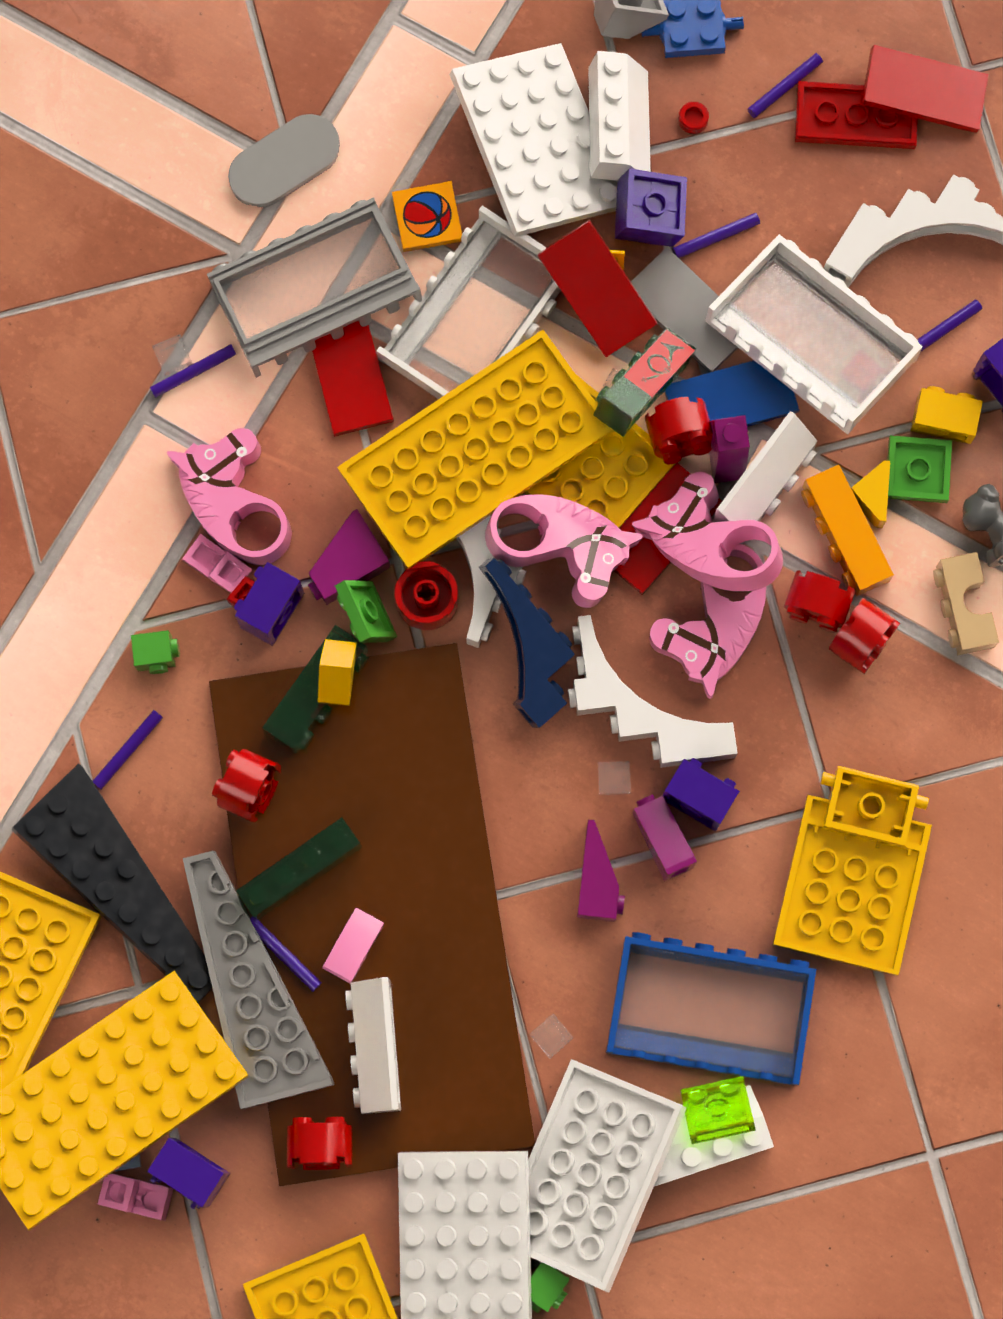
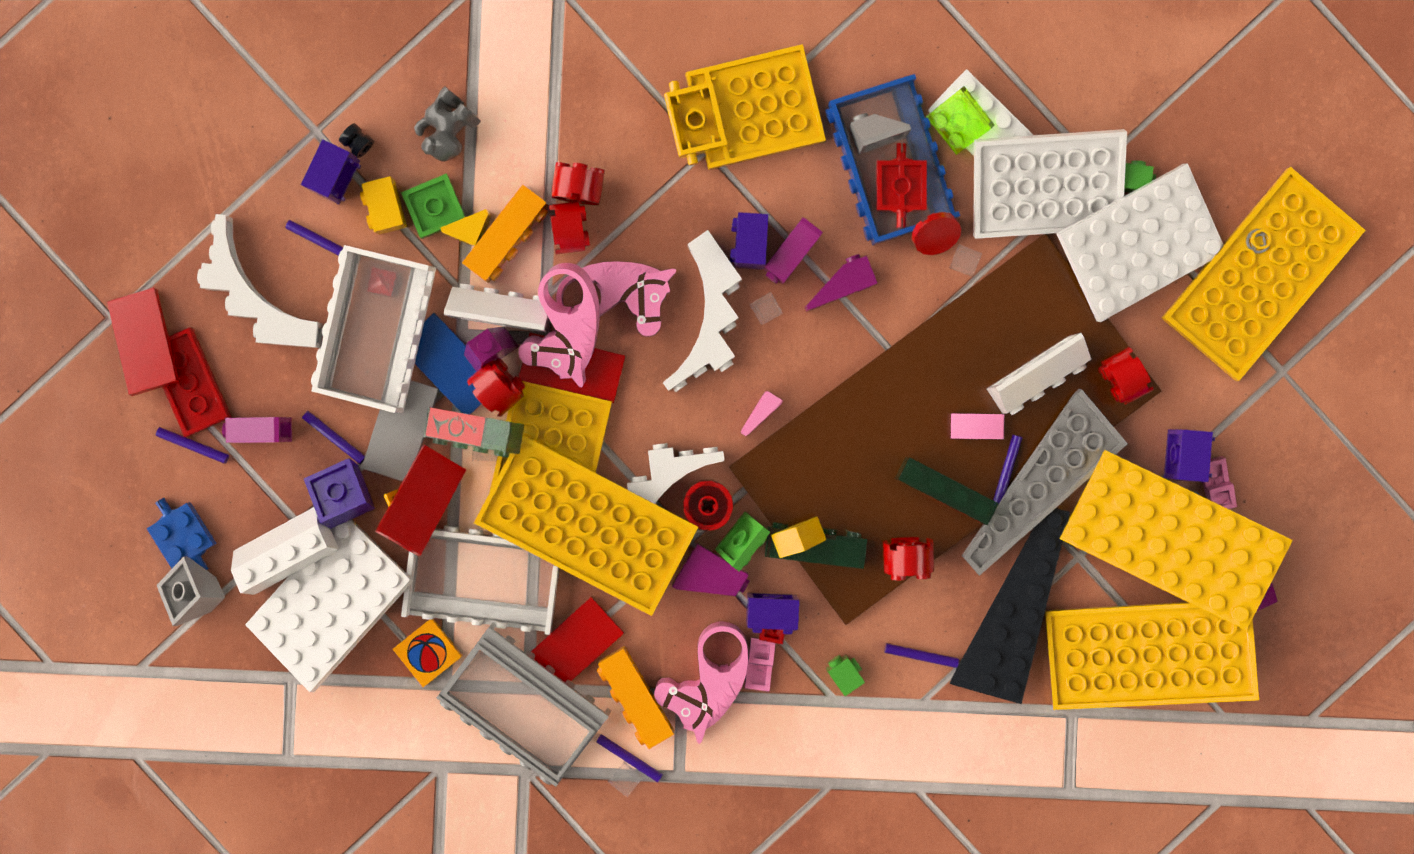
camera: 125 degrees left, 10 degrees up
(255, 409) = (636, 698): none -> light orange brick
(284, 160) = (439, 777): light grey tile -> none
(503, 718) = (767, 404): none -> bright pink slope
(537, 645) = (705, 406): dark blue arch -> none
(569, 531) = (609, 428): bright pink animal -> none
(599, 1013) = (936, 233): none -> red tile
(676, 1002) = (901, 185): none -> red plate
(693, 117) = (252, 499): red tile -> none
(754, 1001) = (876, 131): none -> light grey slope
(765, 159) = (257, 429): none -> slope
(968, 630) = (502, 140): tan arch -> none

